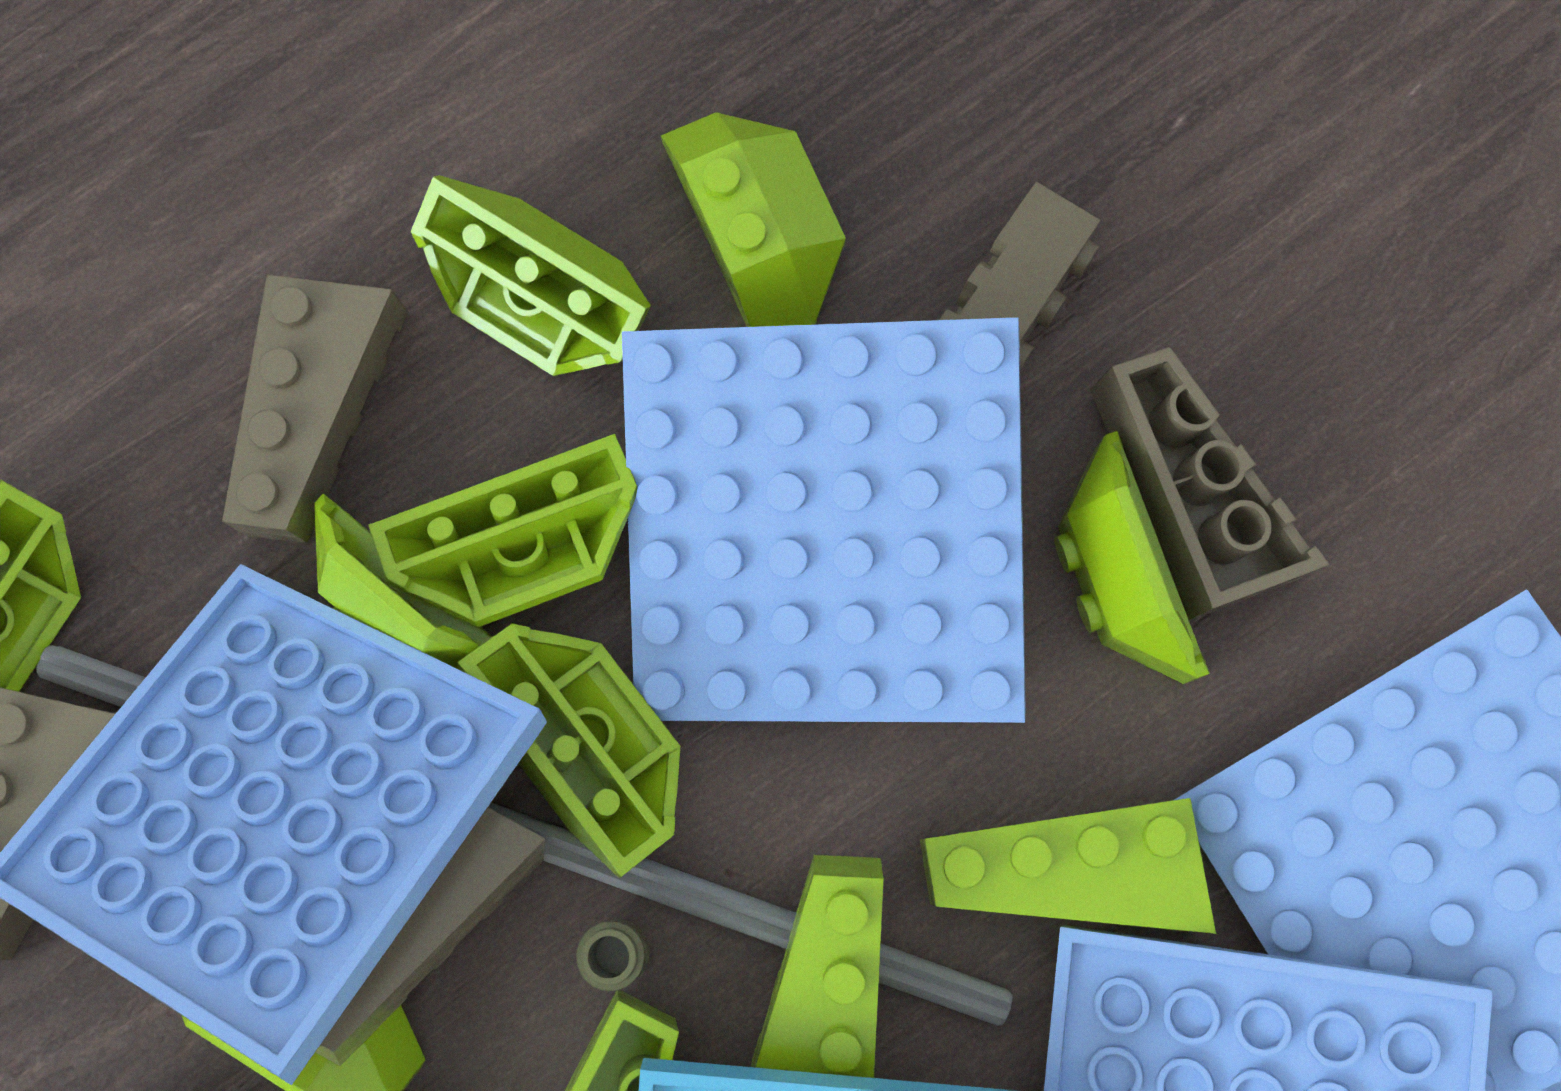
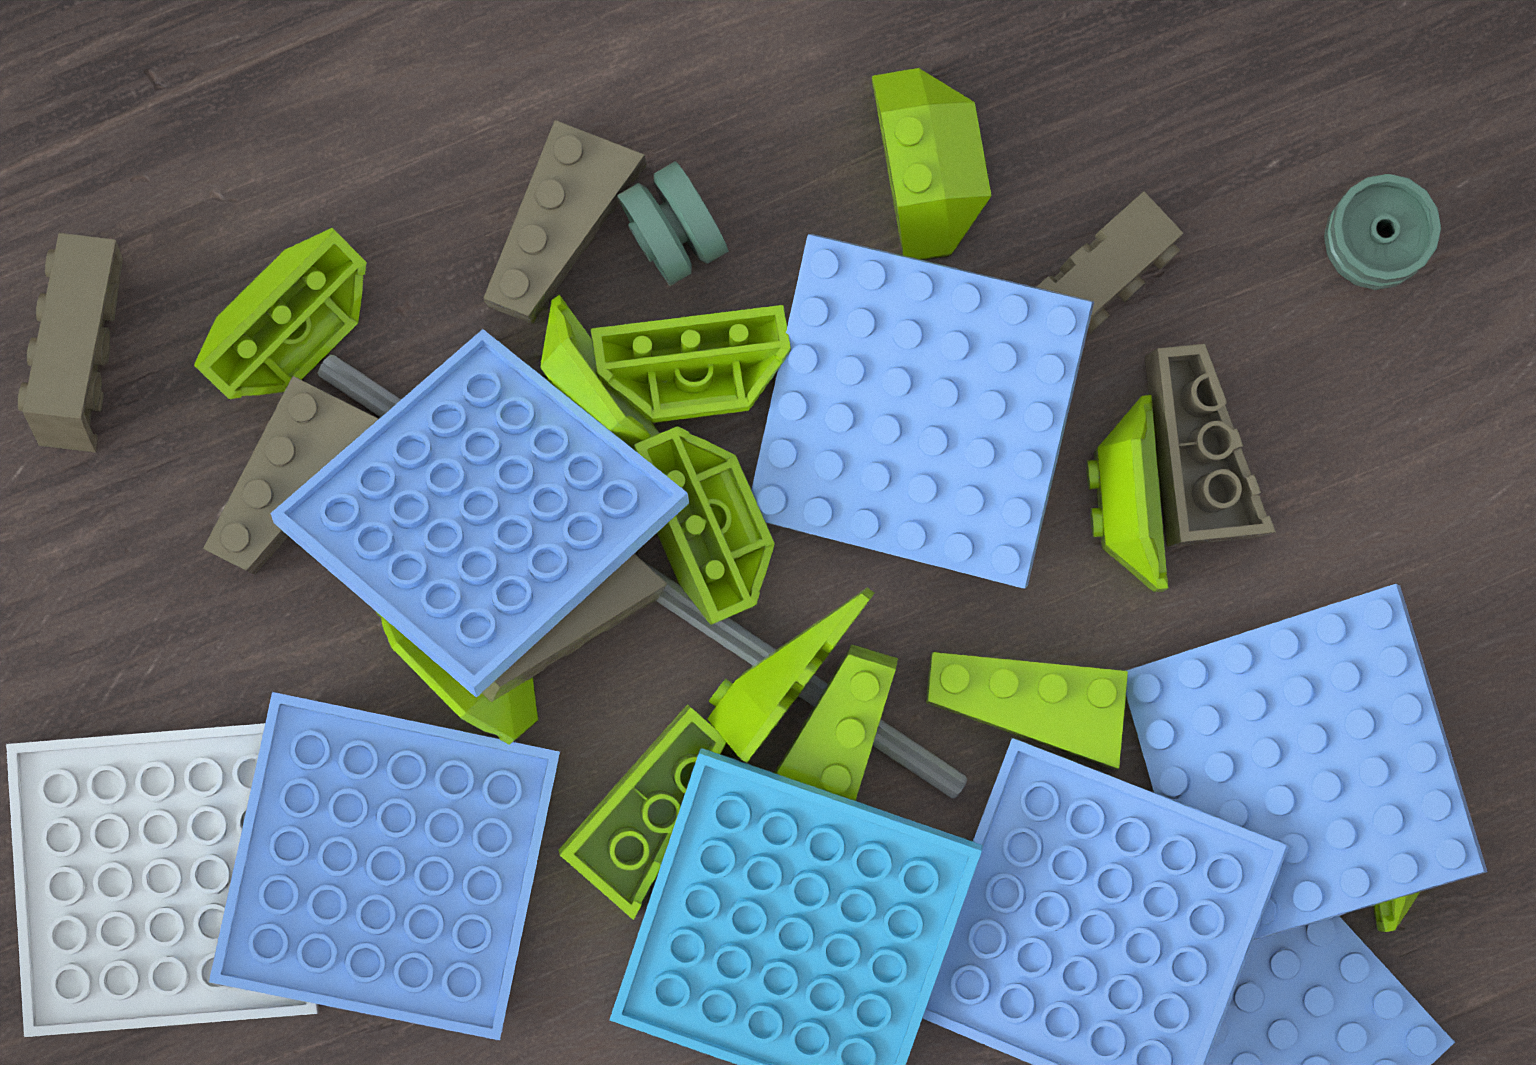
camera: 15 degrees right, 5 degrees up
(451, 363) = (667, 226): none -> sand green wheel
(527, 278) = (747, 168): lime wedge -> none
(613, 954) = (691, 678): olive brick -> none
(715, 948) = (763, 694): none -> lime wedge
(1346, 159) = (1389, 205): none -> sand green wheel

